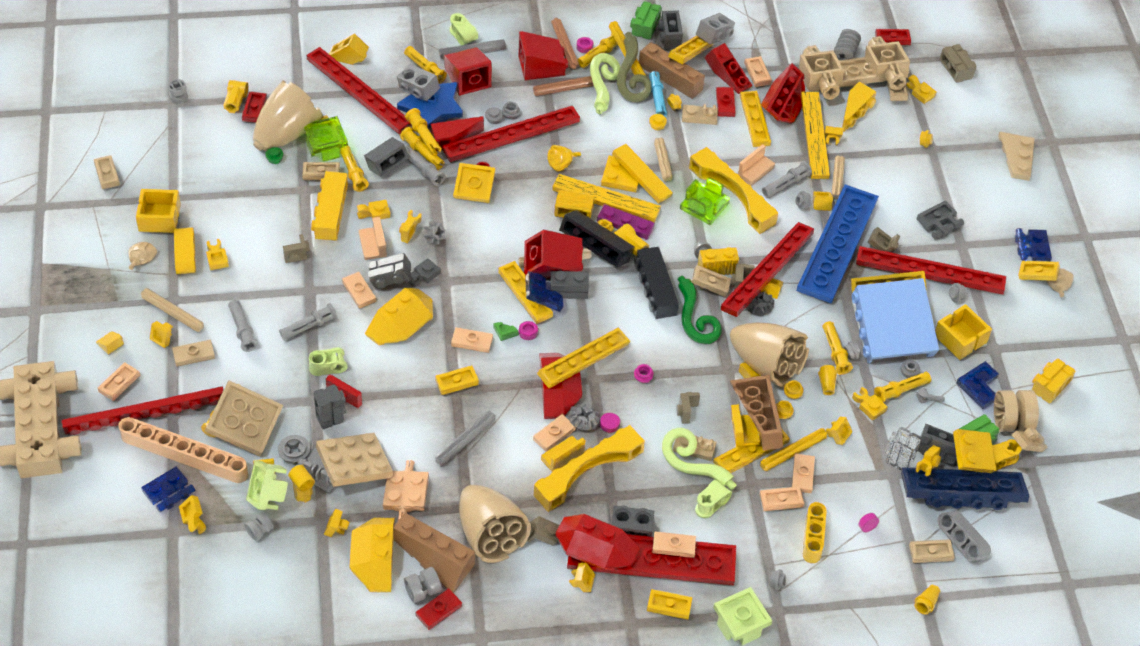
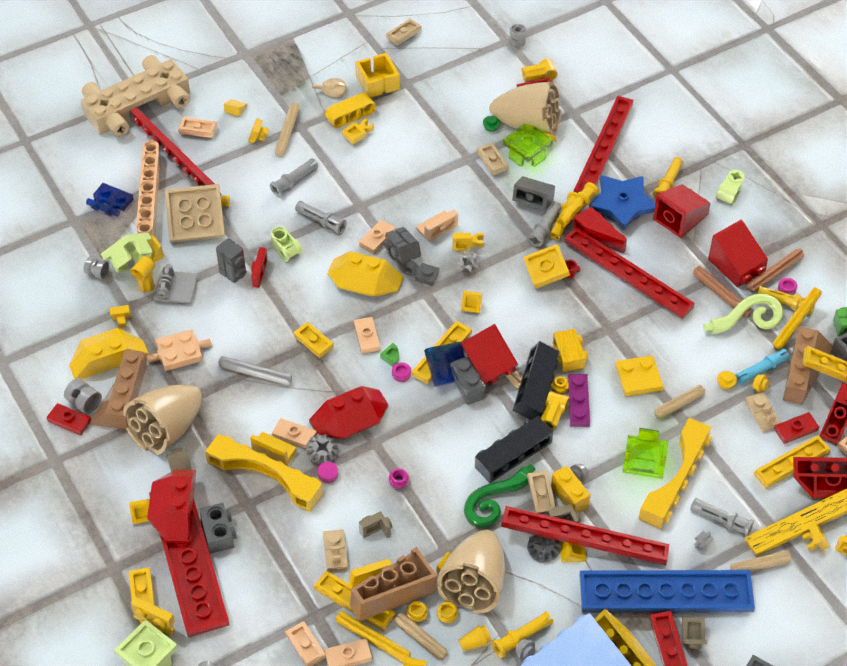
camera: 70 degrees right, 0 degrees up
(190, 514) = (92, 221): yellow plate -> none
(193, 353) = (251, 160): tan plate -> none
(291, 442) = (181, 255): light grey gear -> none
(296, 251) = (391, 179): dark tan bracket -> none
(330, 206) = (456, 180): yellow brick -> none
(349, 50) = (644, 122): yellow slope -> none
(354, 459) = (187, 299): tan plate -> none
(355, 173) = (504, 181): yellow pin -> none
(373, 210) = (472, 213): yellow plate -> none
(418, 82) = (629, 176): light grey brick -> none
(481, 249) = (471, 301): none -> yellow tile
(483, 47) = (715, 204): light grey axle -> none
(493, 115) = (643, 251): light grey plate -> none
(511, 109) = (658, 261): light grey plate -> none
(560, 157) = (624, 319): yellow piece -> none
(583, 357) = (381, 419): yellow tile -> none
(608, 197) = (599, 375): yellow tile -> none
(631, 48) = (791, 320): olive plant -> none
(642, 173) = (644, 388): yellow tile -> none
(674, 544) = (203, 567): light nougat plate -> none
(706, 600) = (156, 616): none -> yellow plate
(712, 499) = (276, 584): yellowish green piece -> none
(714, 471) = (308, 573): yellowish green plant -> none
(755, 166) = (722, 481): light nougat panel -> none
(807, 416) = (421, 636): none -> tan axle
(822, 201) = (718, 558): yellow slope -> none

